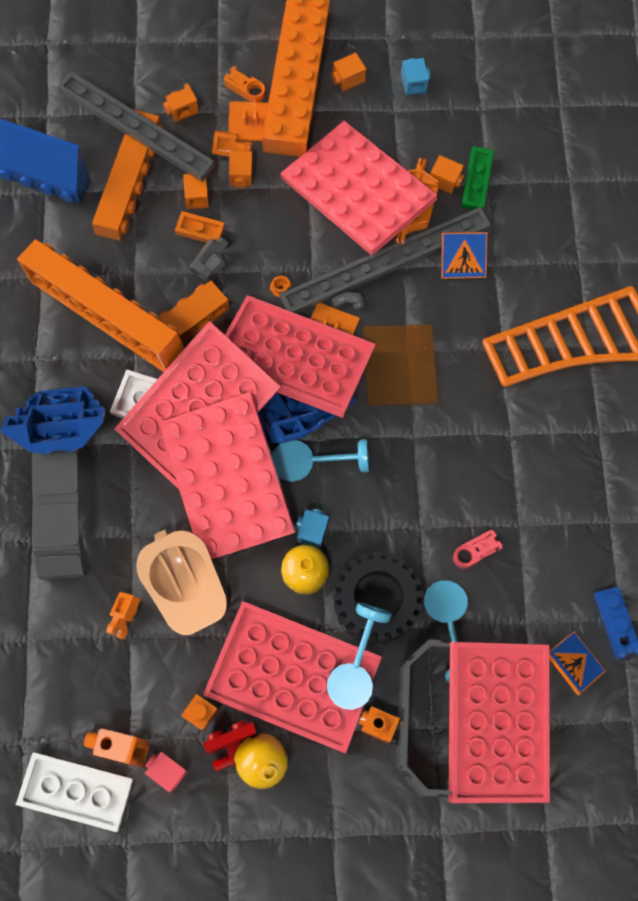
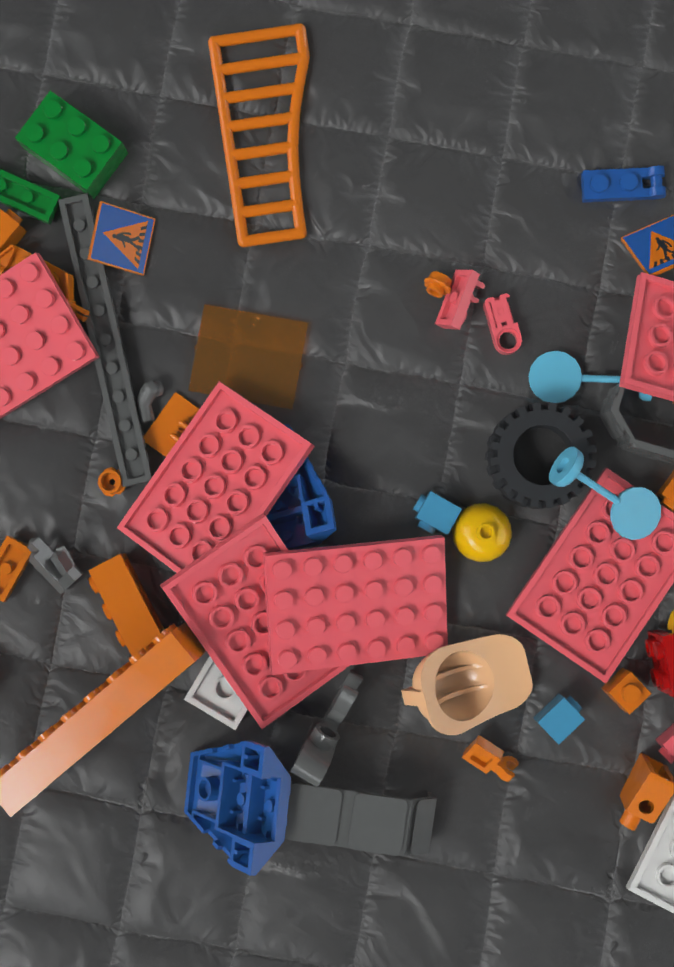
camera: 70 degrees left, 15 degrees up
(115, 474) = (322, 738): none -> dark grey piece
(167, 661) = (560, 717): none -> dark azure brick
(295, 459) = (350, 510): medium azure piece -> none
(475, 508) = (455, 305): none -> coral plate
(494, 491) = (438, 284): none -> orange plate
(522, 208) = (72, 144): none -> green brick

